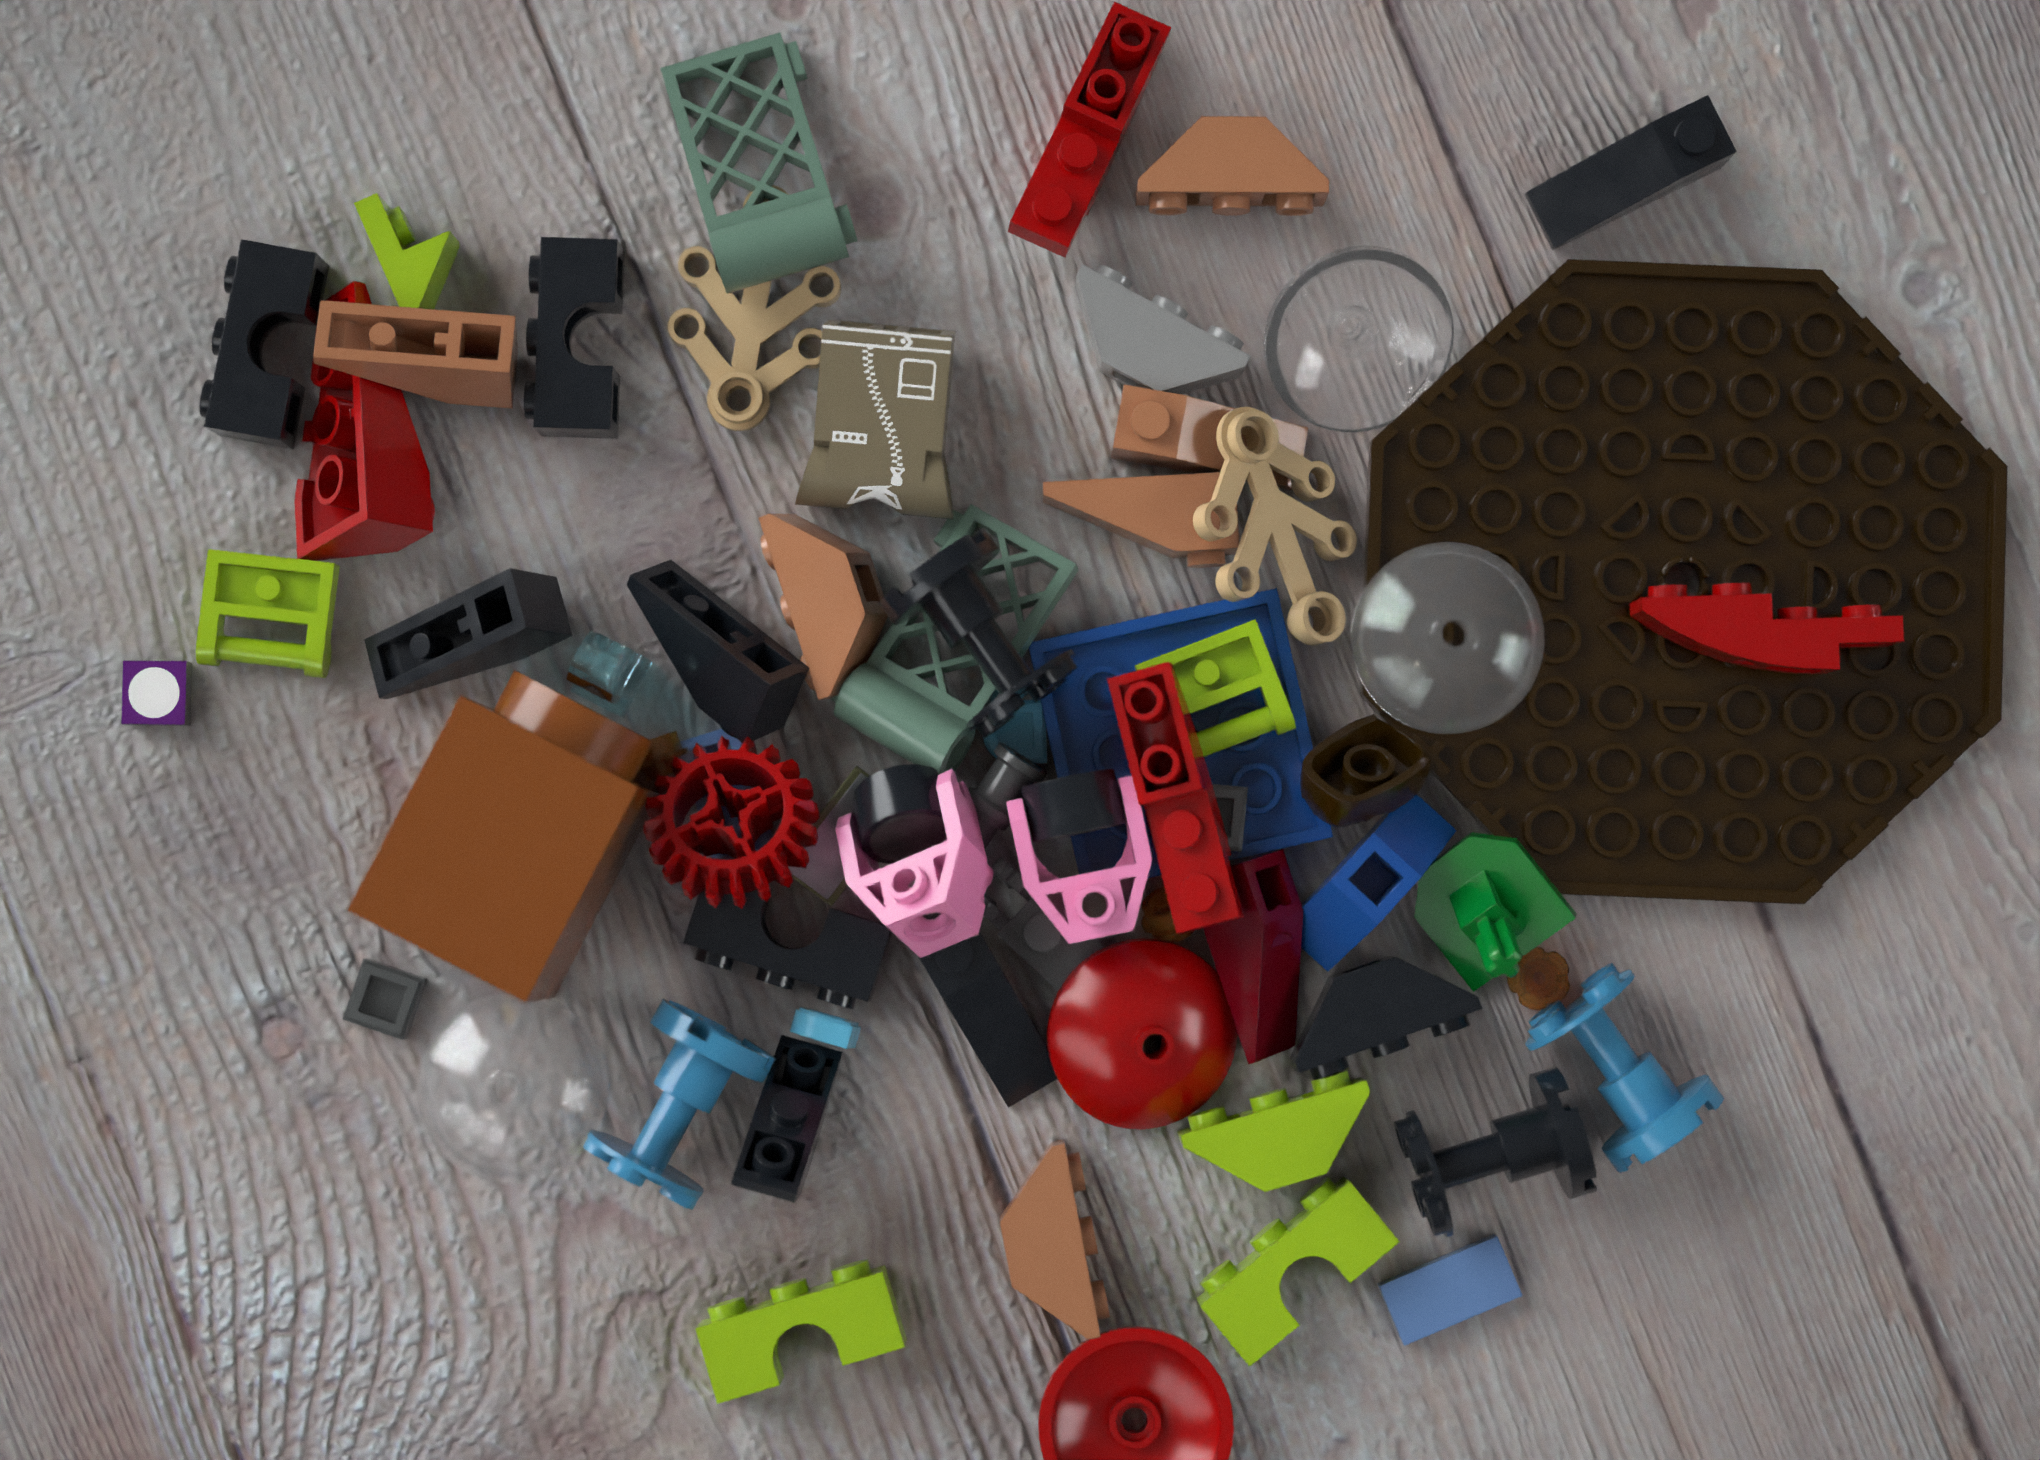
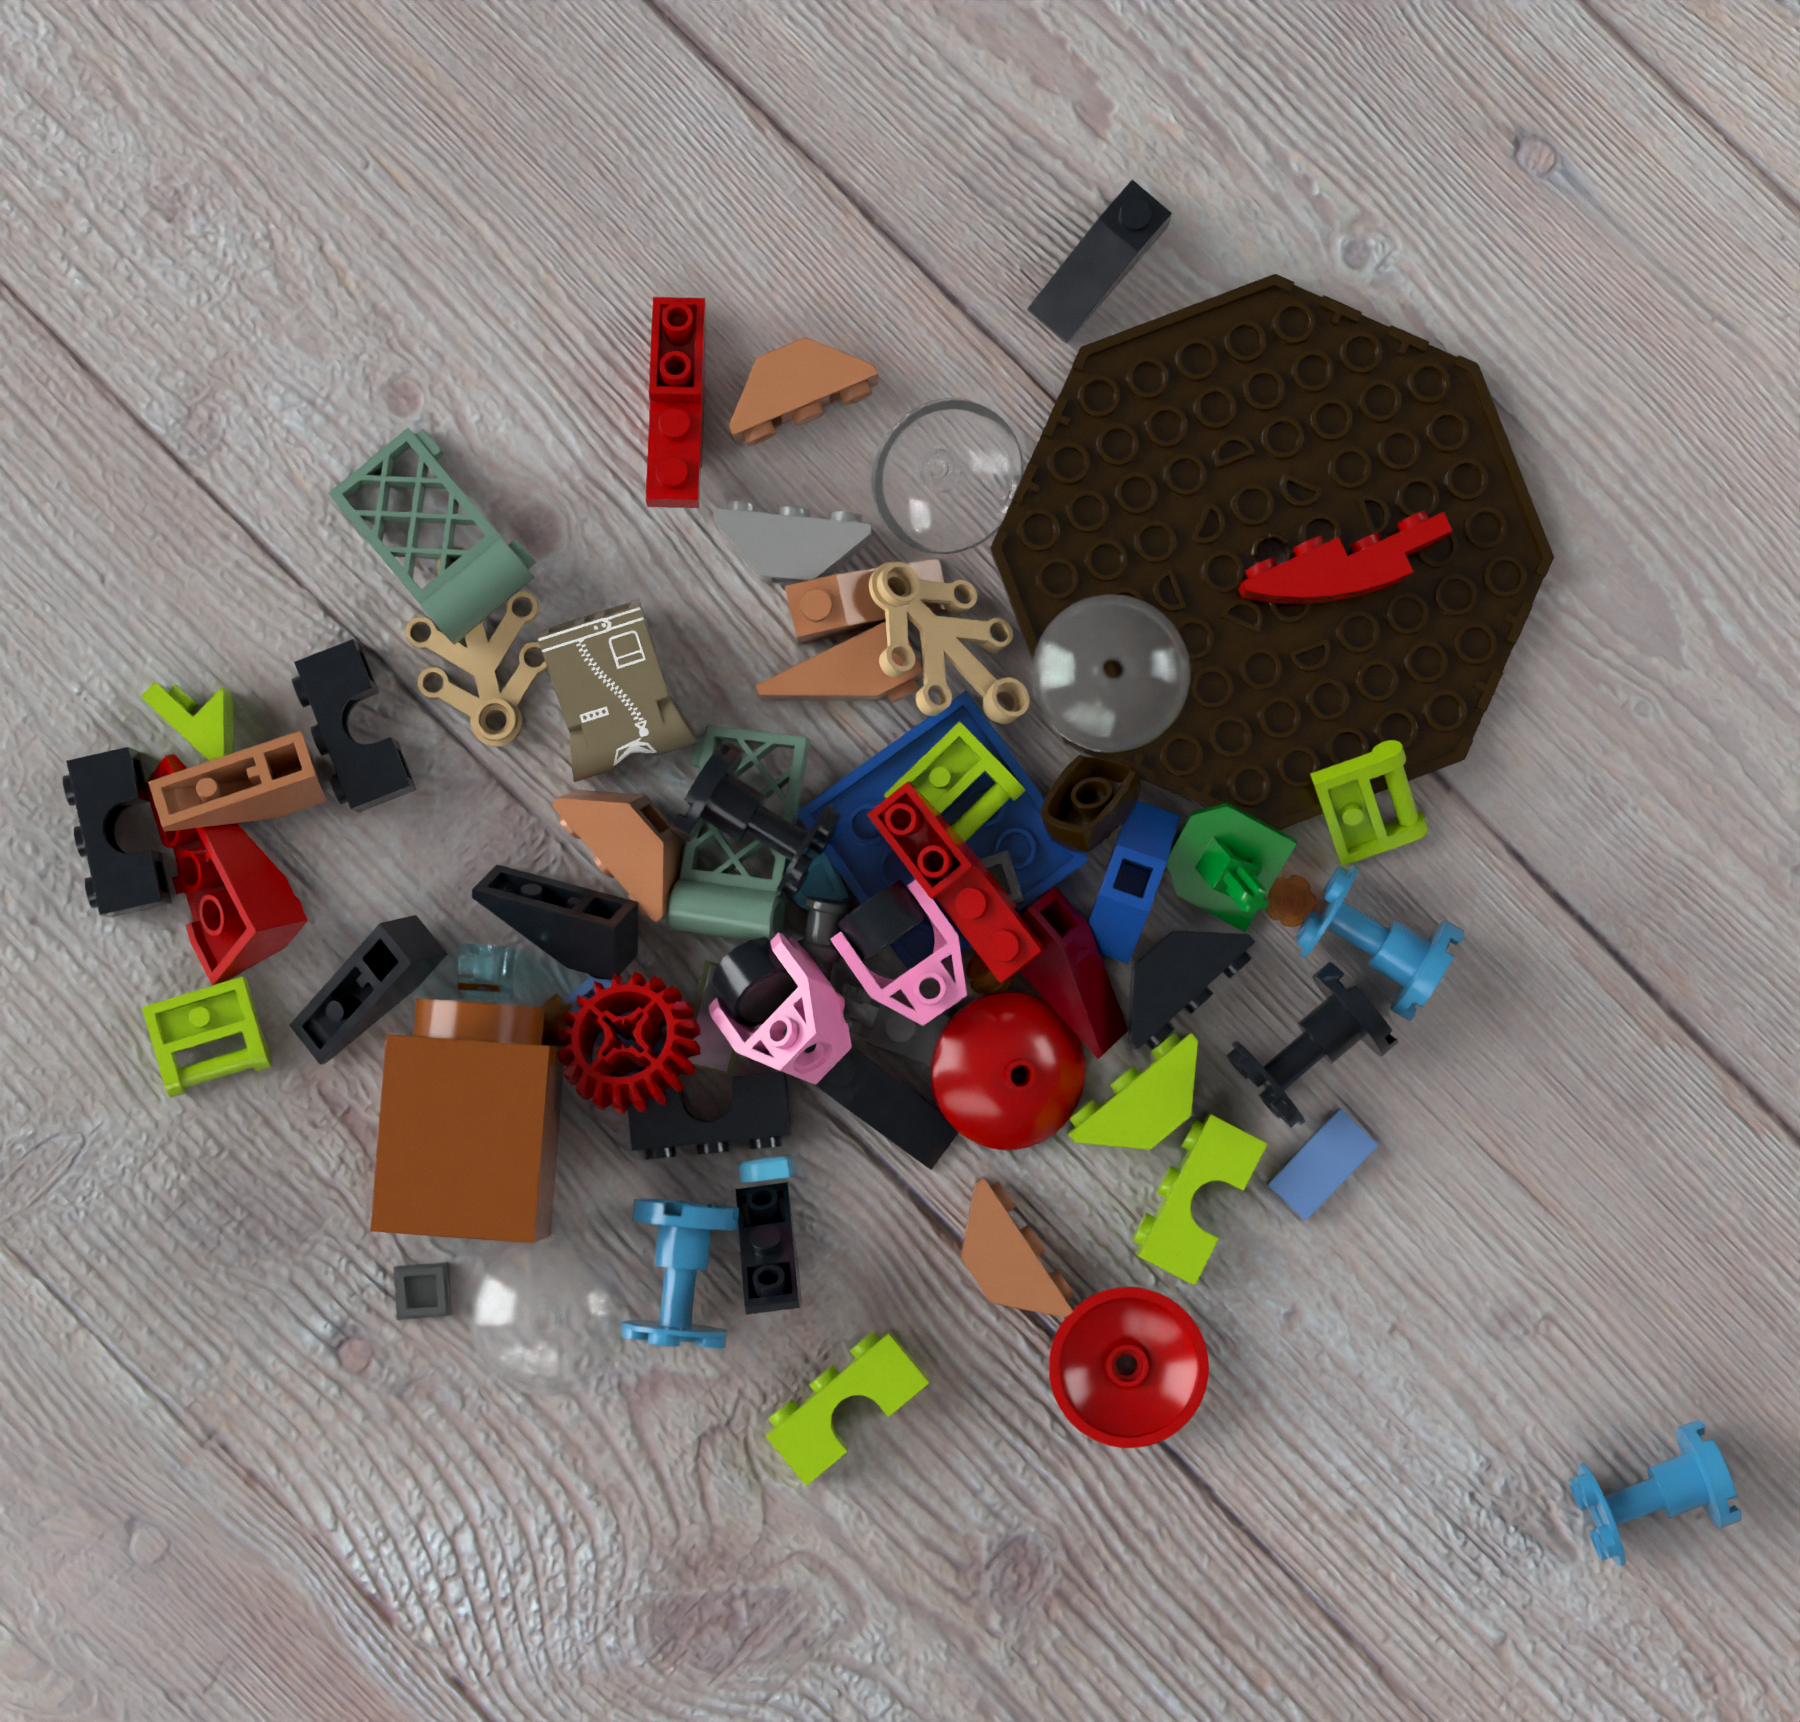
camera: 20 degrees left, 0 degrees up
(156, 693) = (148, 1133): tile -> none
(1655, 906) = (1353, 810): none -> lime plate

